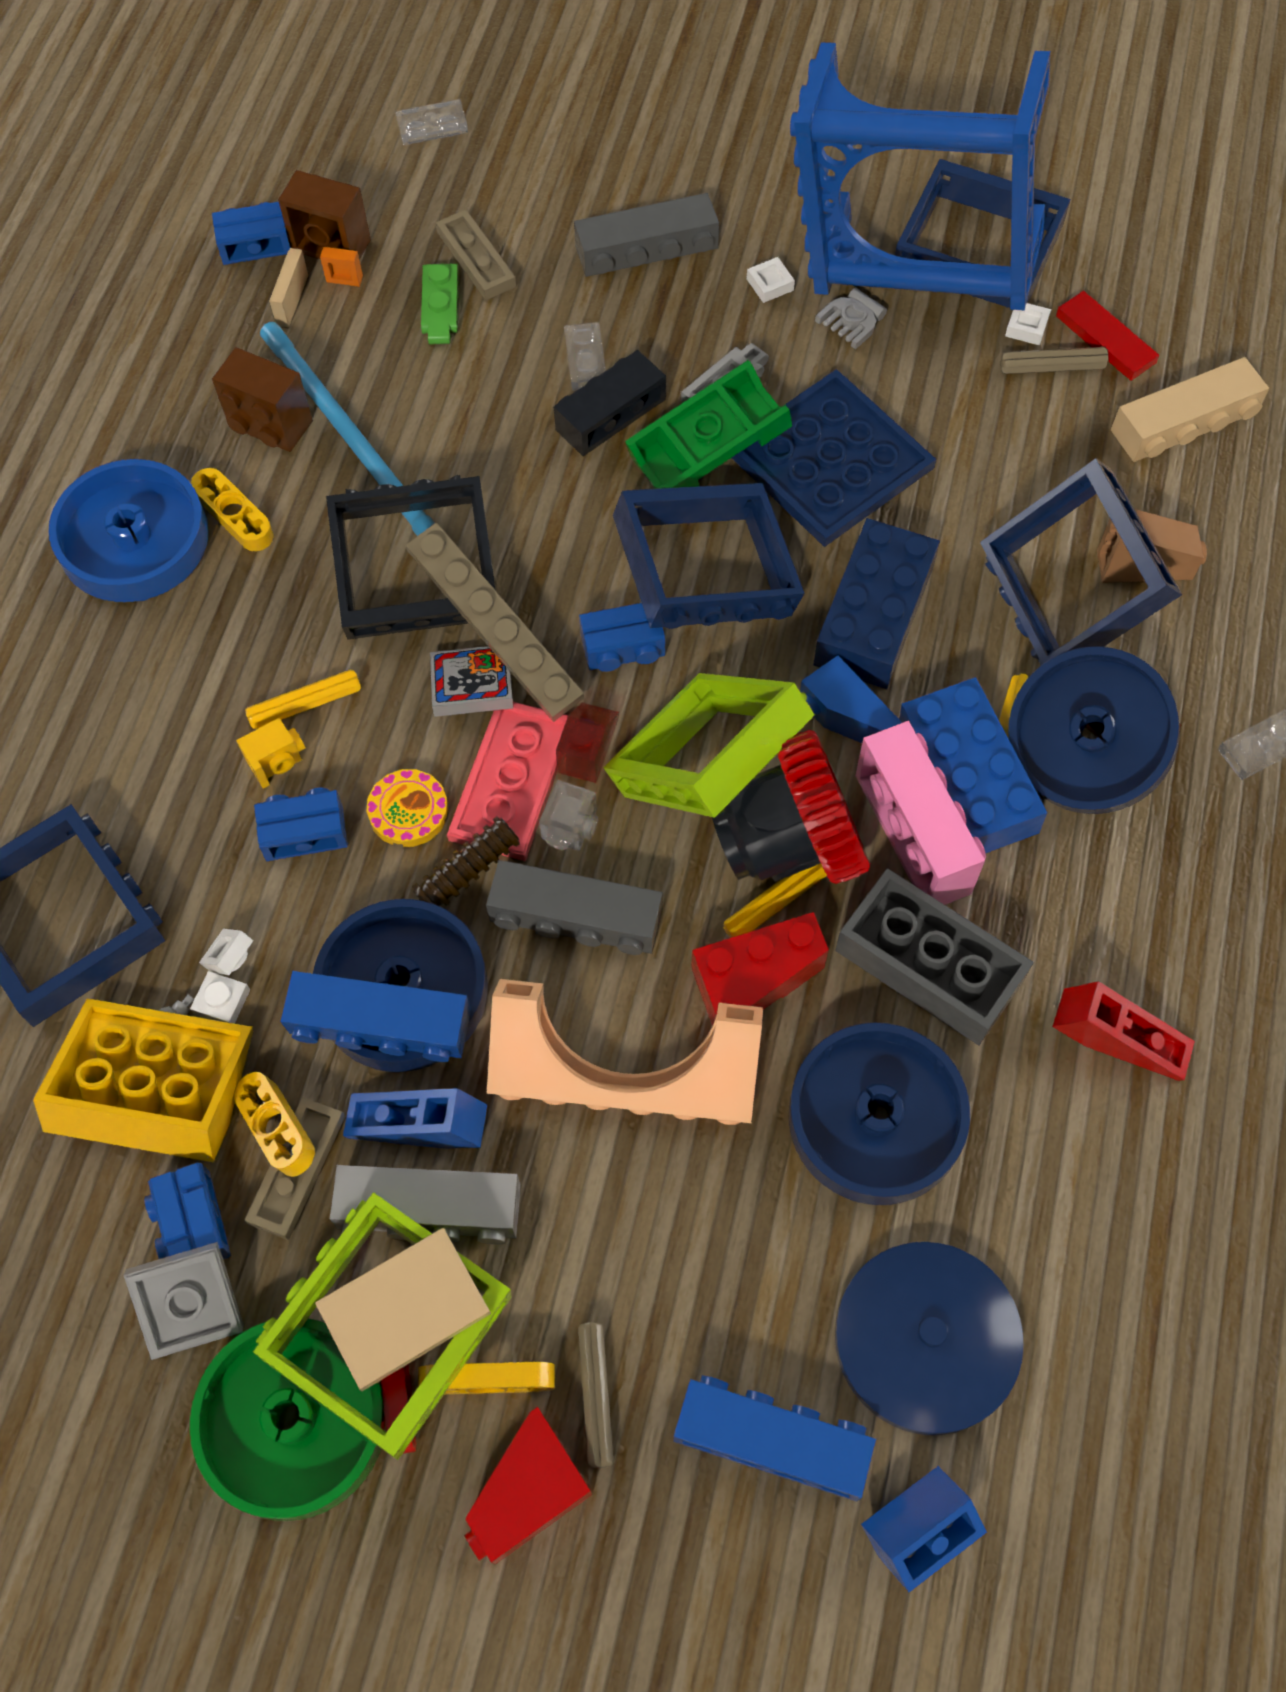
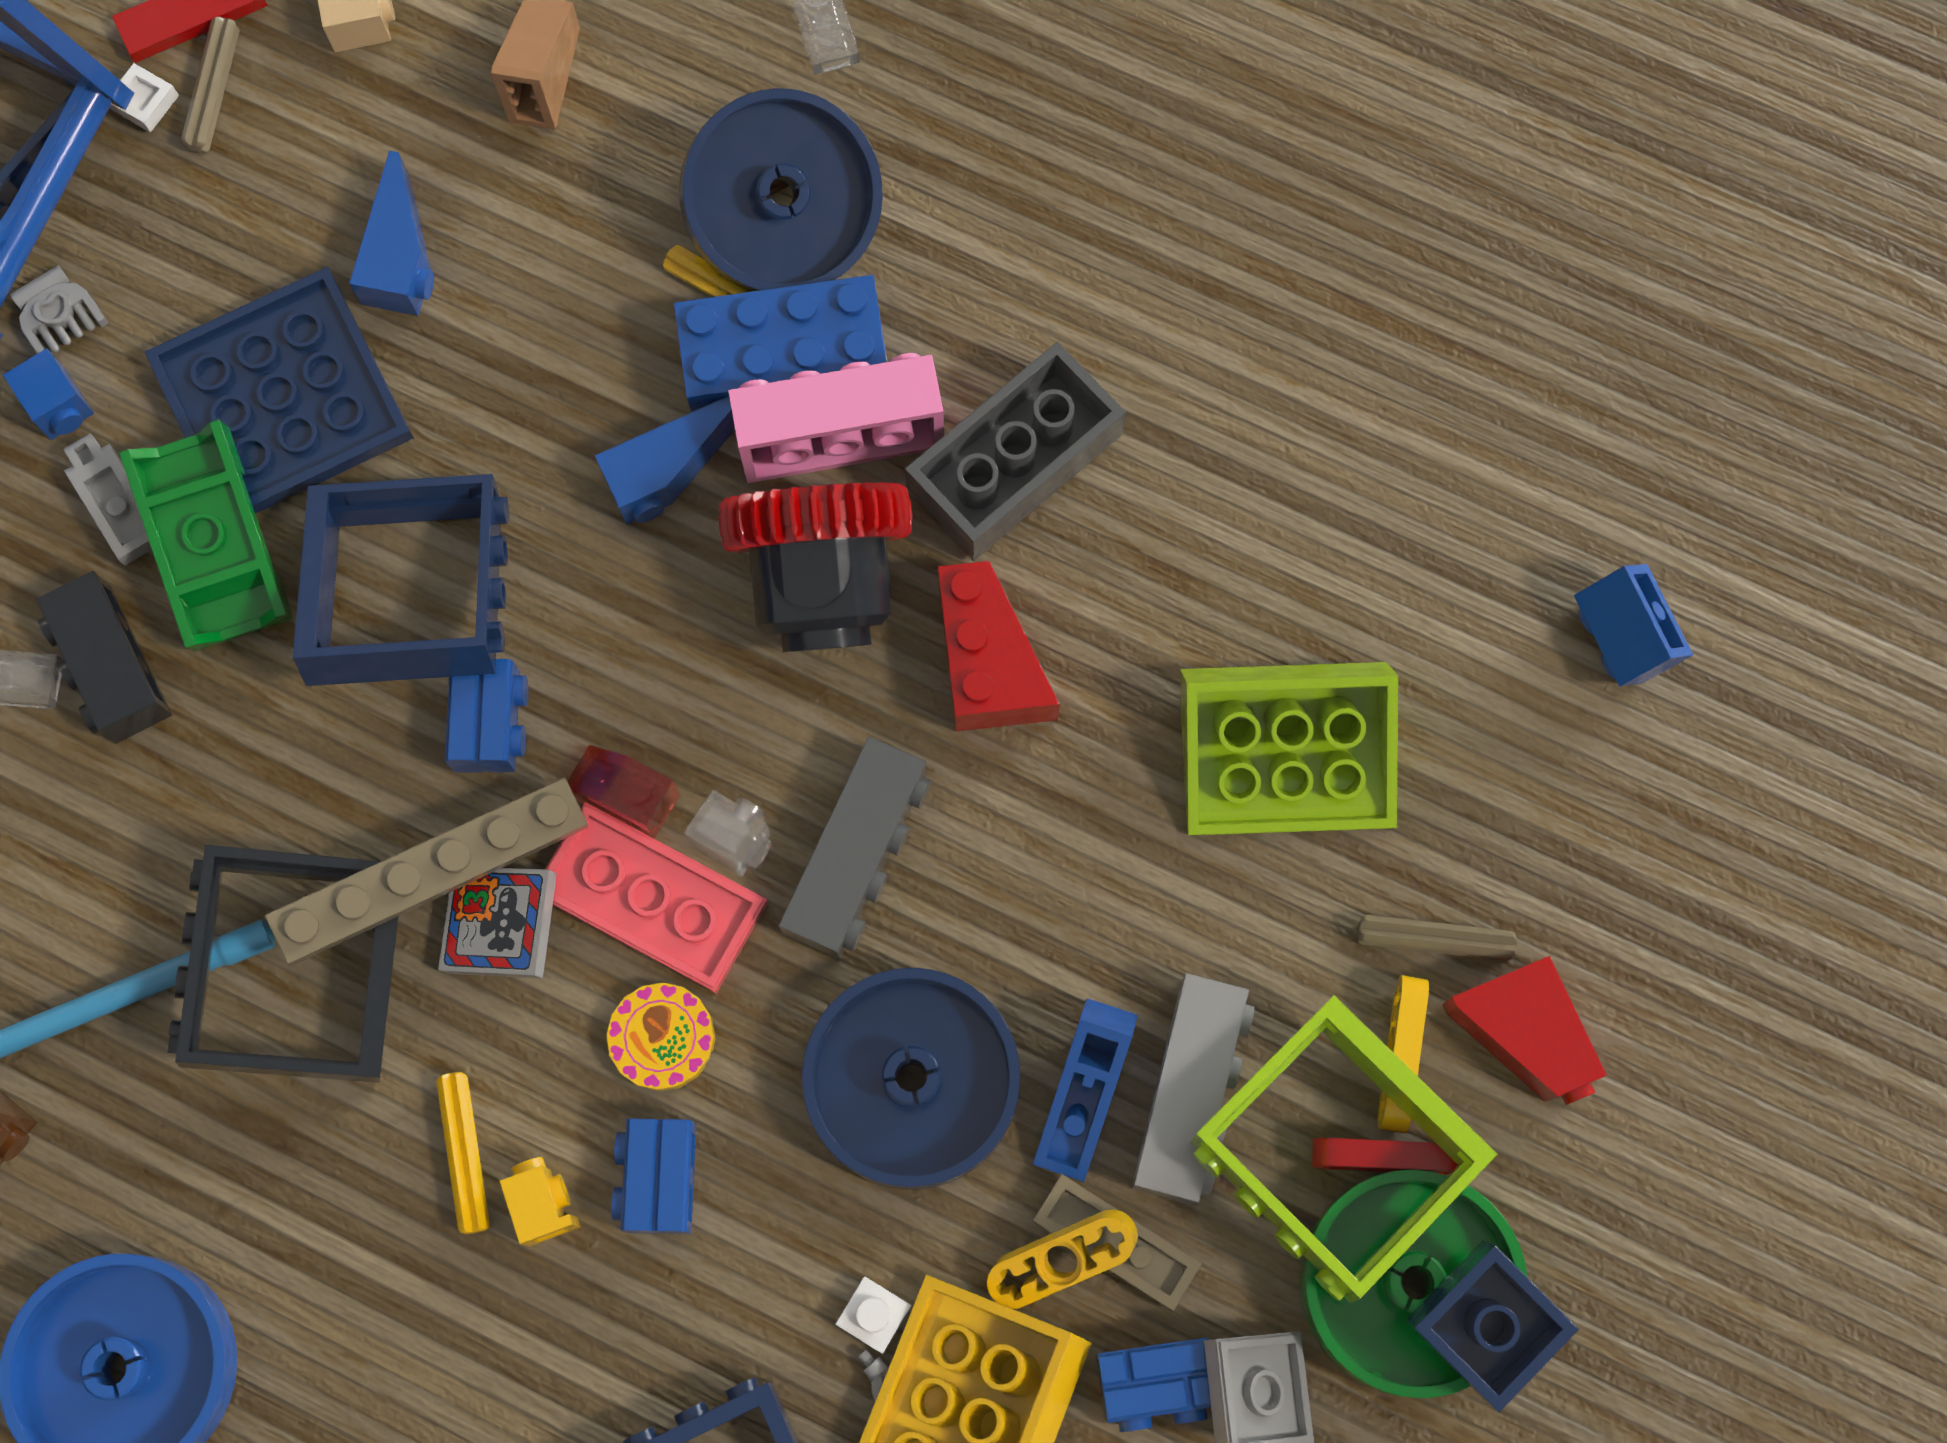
camera: 80 degrees left, 10 degrees up
(227, 952) = (815, 1296): white plate -> none
(235, 523) = (149, 1183): yellow beam -> none
(246, 1477) = (1492, 1325): none -> dark blue brick
(376, 1015) = (965, 1104): blue brick -> none
(402, 1309) = (1340, 1117): tan tile -> none
(467, 863) = (769, 970): dark brown piece -> none
(535, 1063) = (1115, 735): light nougat arch -> none
(640, 768) = (633, 678): lime window -> none
(736, 1233) = (1290, 748): none -> lime slope
(772, 901) = (907, 639): yellow axle -> none
(775, 1439) = (1518, 756): blue brick -> none
(789, 325) = (48, 394): none -> blue brick
(874, 1157) = (1174, 608): dark blue piece -> none
(877, 601) = (522, 392): dark blue brick -> none
(929, 1338) = (1433, 574): dark blue dish -> none
(967, 496) = (393, 259): none -> blue slope
(1049, 509) = (552, 228): dark blue window -> none
(1122, 1030) = (1140, 279): red slope -> none

